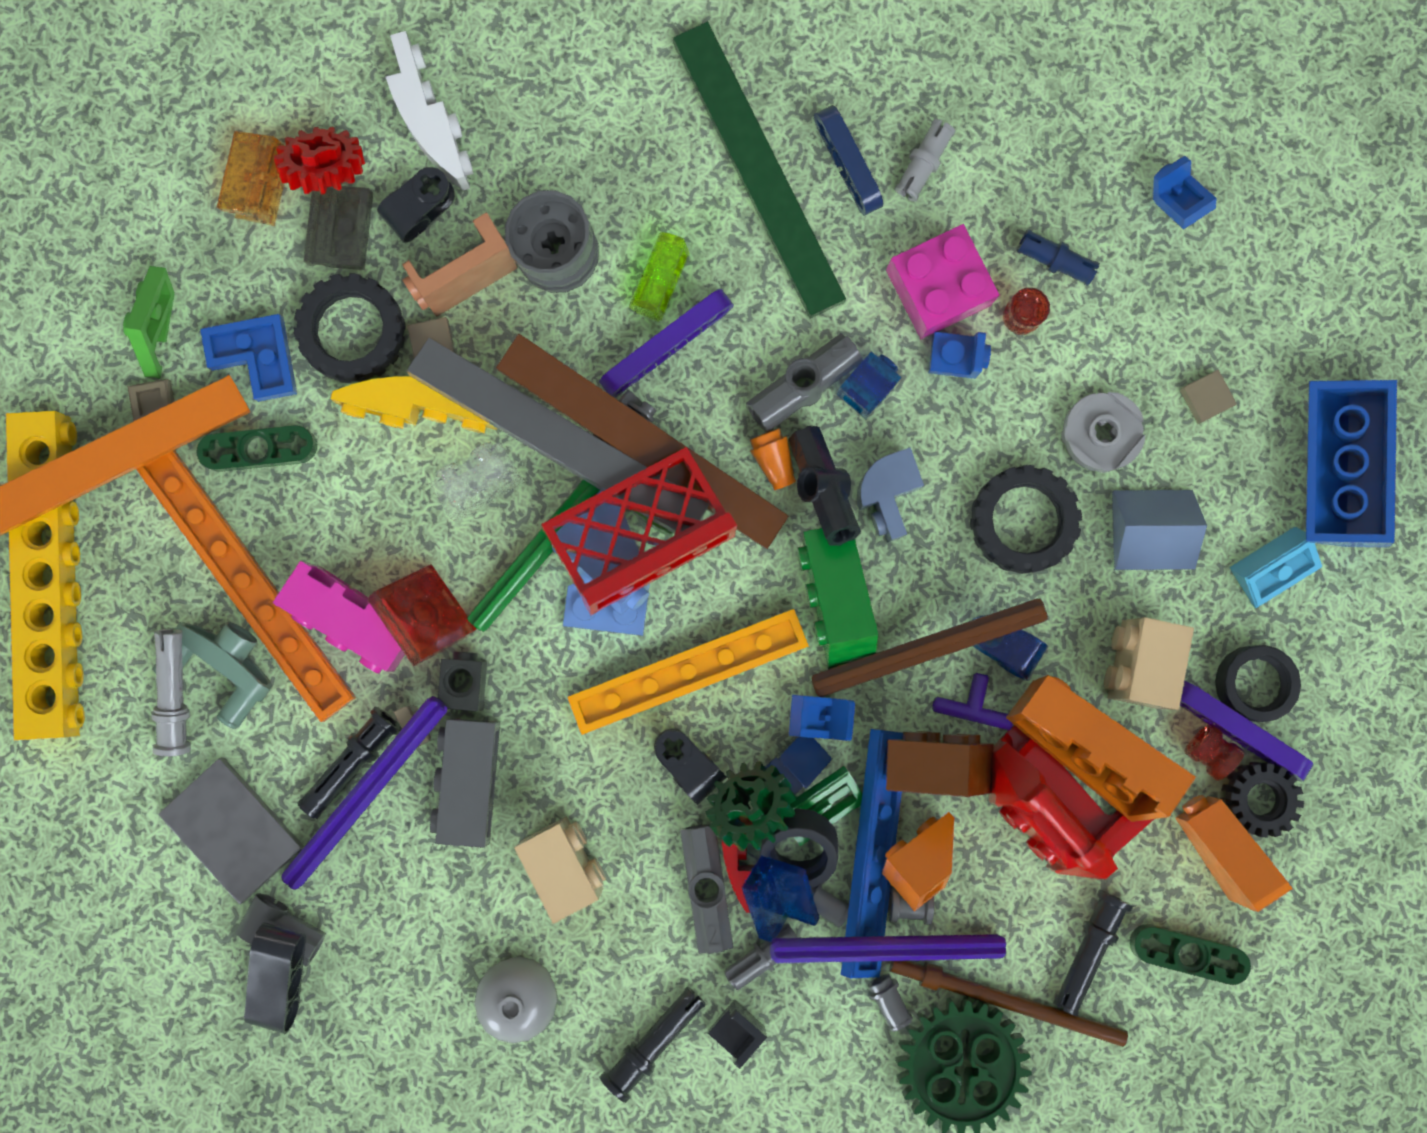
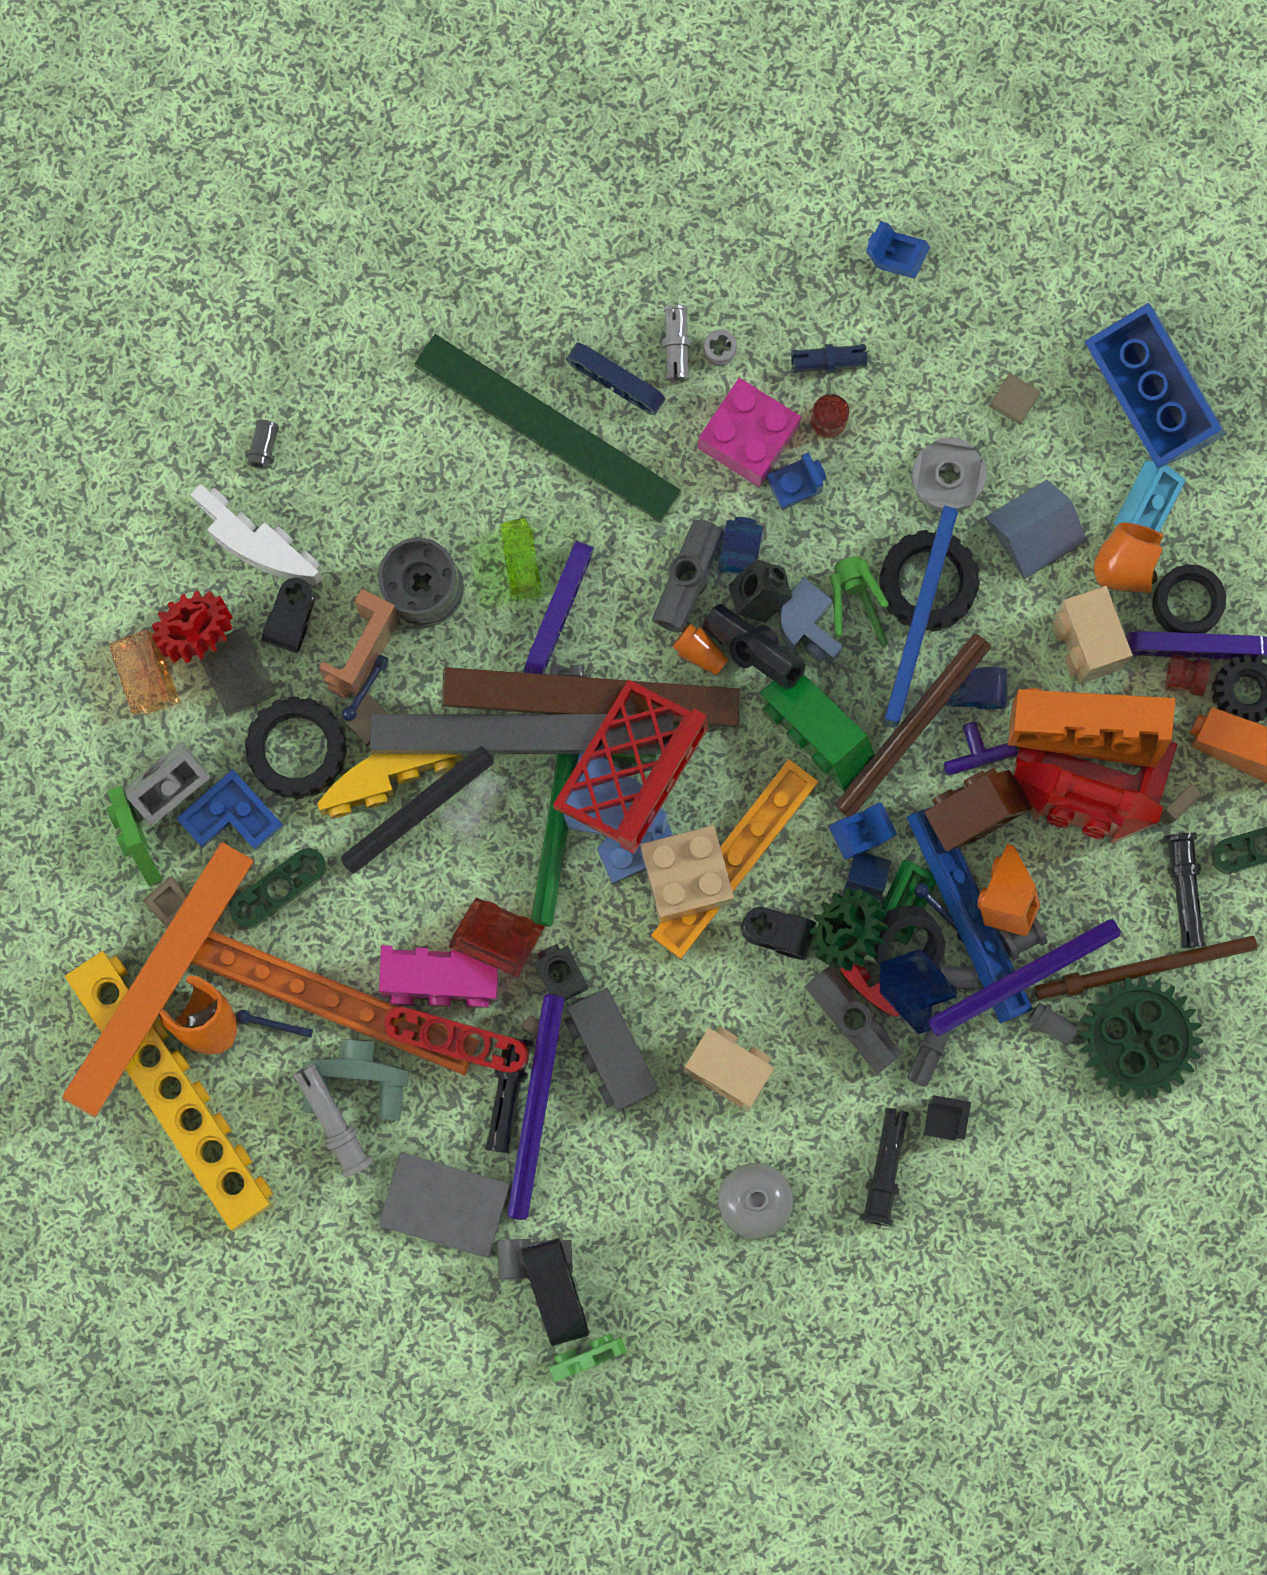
camera: 25 degrees left, 5 degrees down
(110, 536) = (207, 1021): none -> orange piece
(156, 547) = (244, 1017): none -> dark blue hinge
(208, 291) = (166, 783): none -> light grey brick
(260, 1056) = (572, 1363): none -> bright green wing
(331, 683) = (456, 1039): none -> red beam
(422, 451) = (417, 809): none -> black axle
(474, 297) = (349, 713): none -> dark blue hinge
(488, 31) = (262, 445): none -> dark grey pin
(631, 662) = (687, 874): none -> tan brick
(842, 807) = (921, 891): none -> dark blue hinge
(862, 436) = (760, 590): none -> pearl dark grey brick
(957, 475) = (853, 576): none -> bright green plant
(960, 177) = (712, 339): none -> light grey bush
(997, 550) = (920, 617): none -> blue tile
(1136, 870) = (1181, 804): none -> dark tan tile
(1227, 611) = (1129, 558): none -> orange piece

